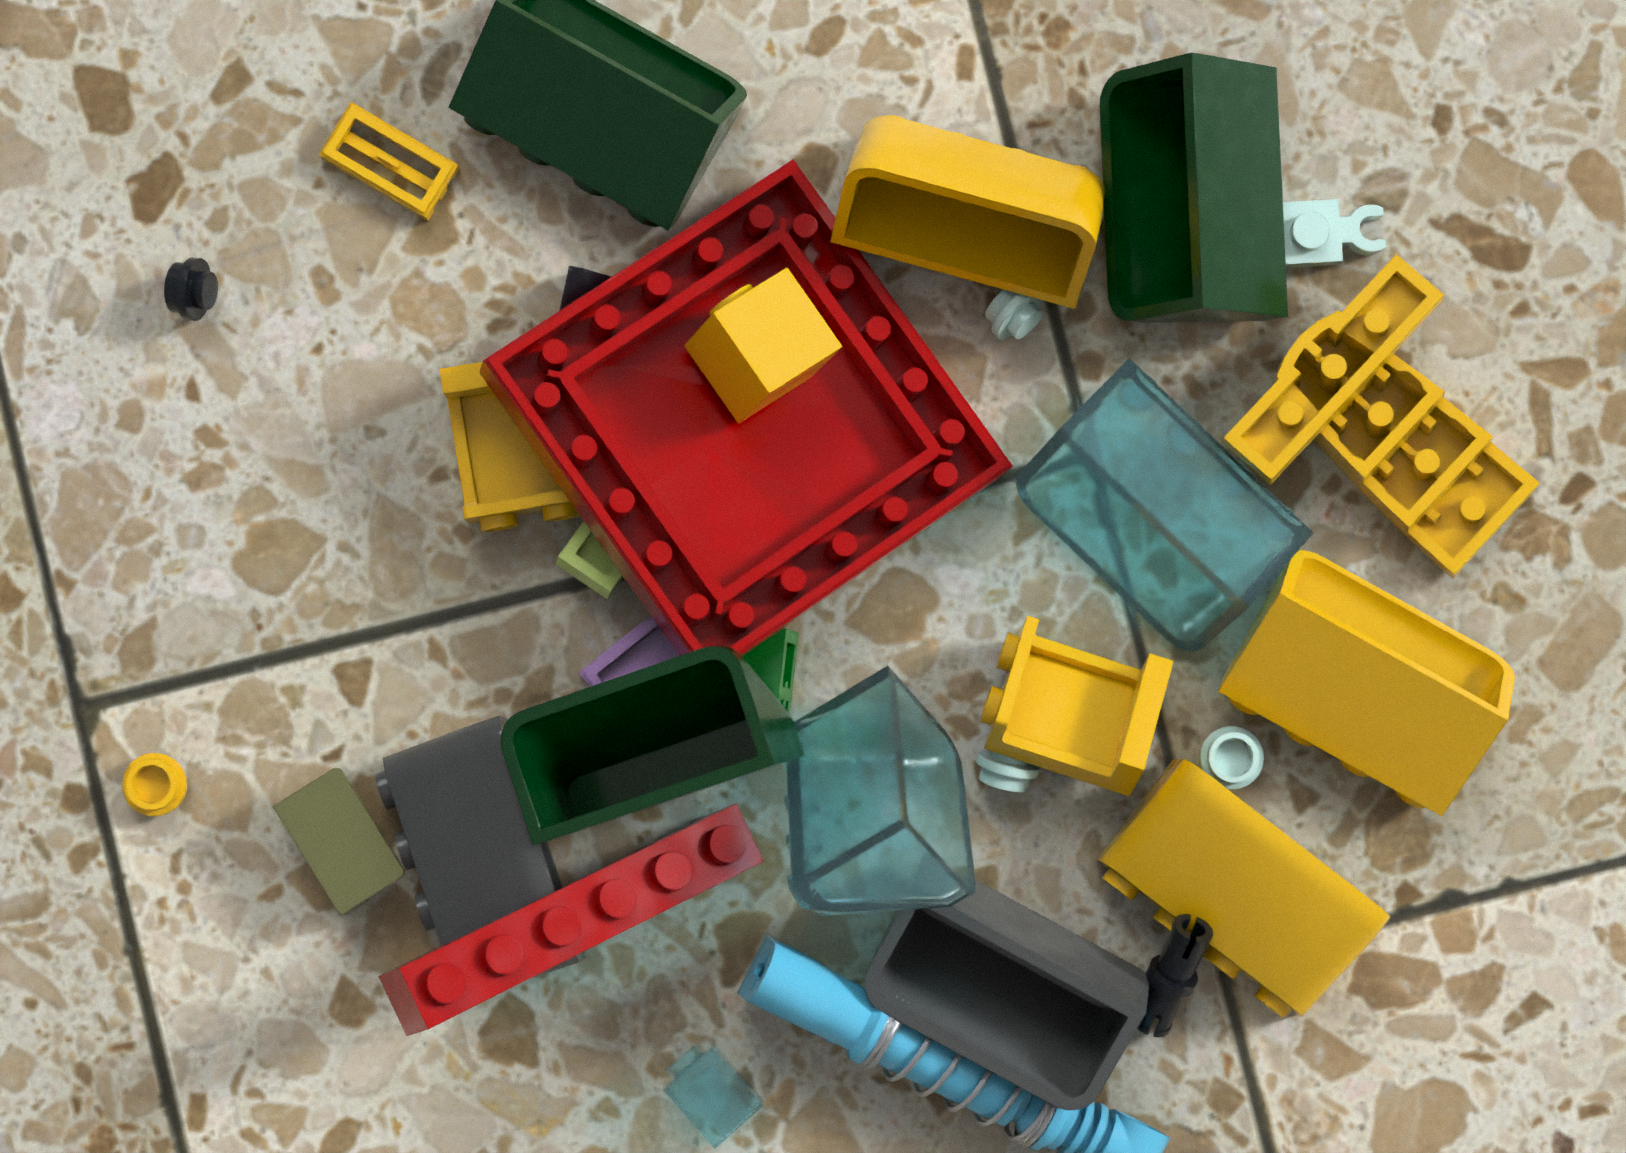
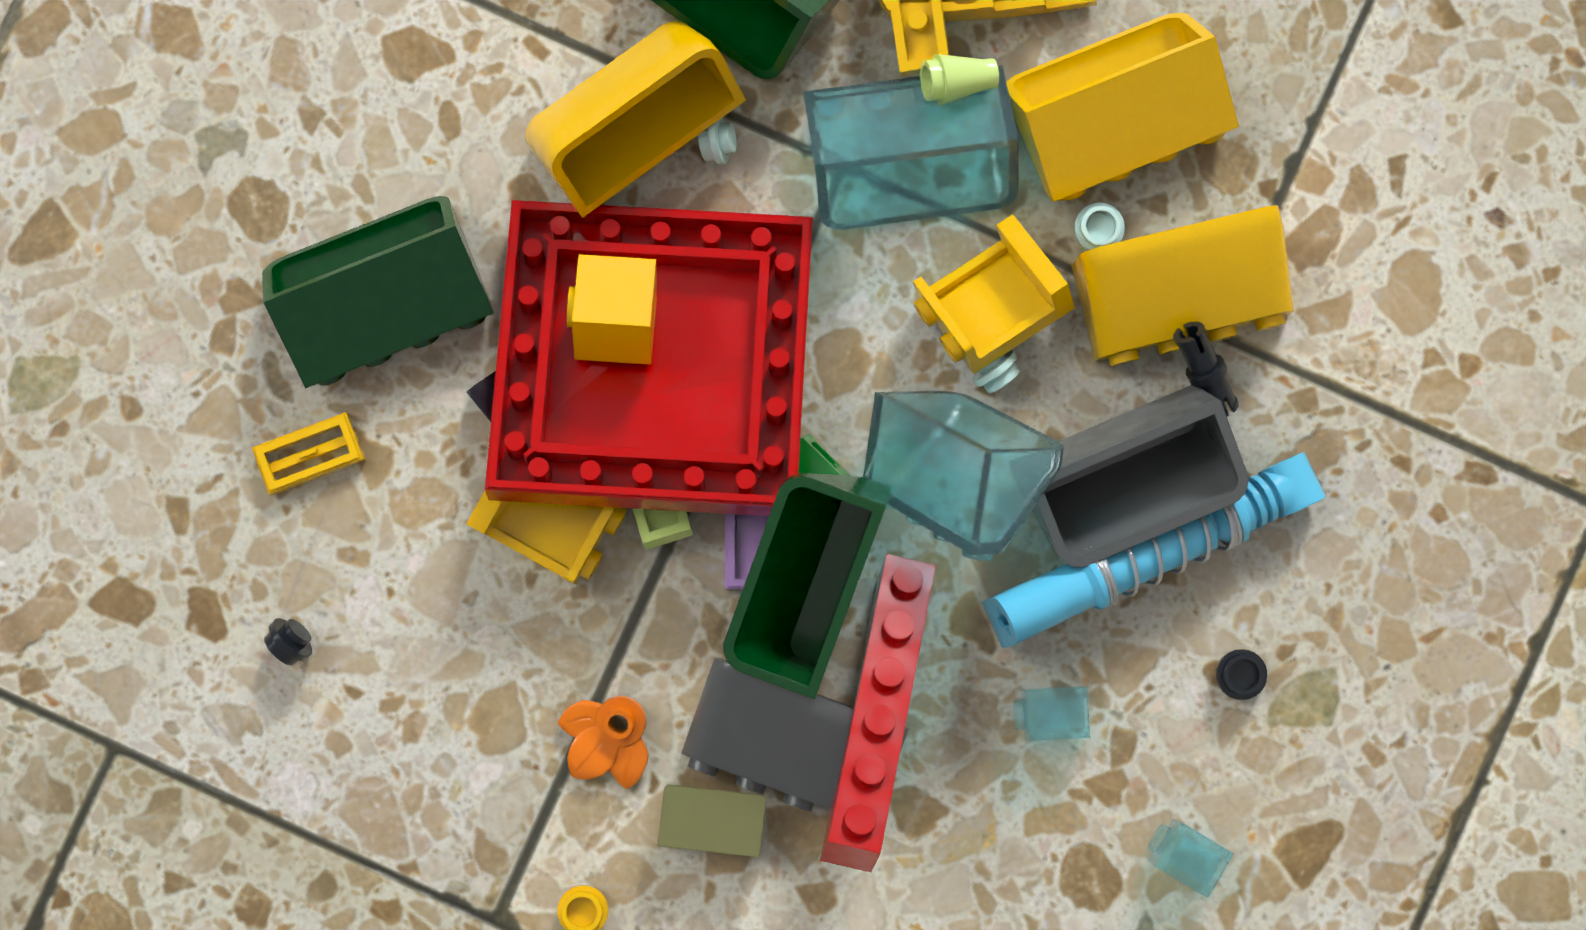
camera: 45 degrees left, 0 degrees up
(330, 674) = (601, 745): none -> orange plate
(1260, 496) = (956, 77): none -> yellowish green cone

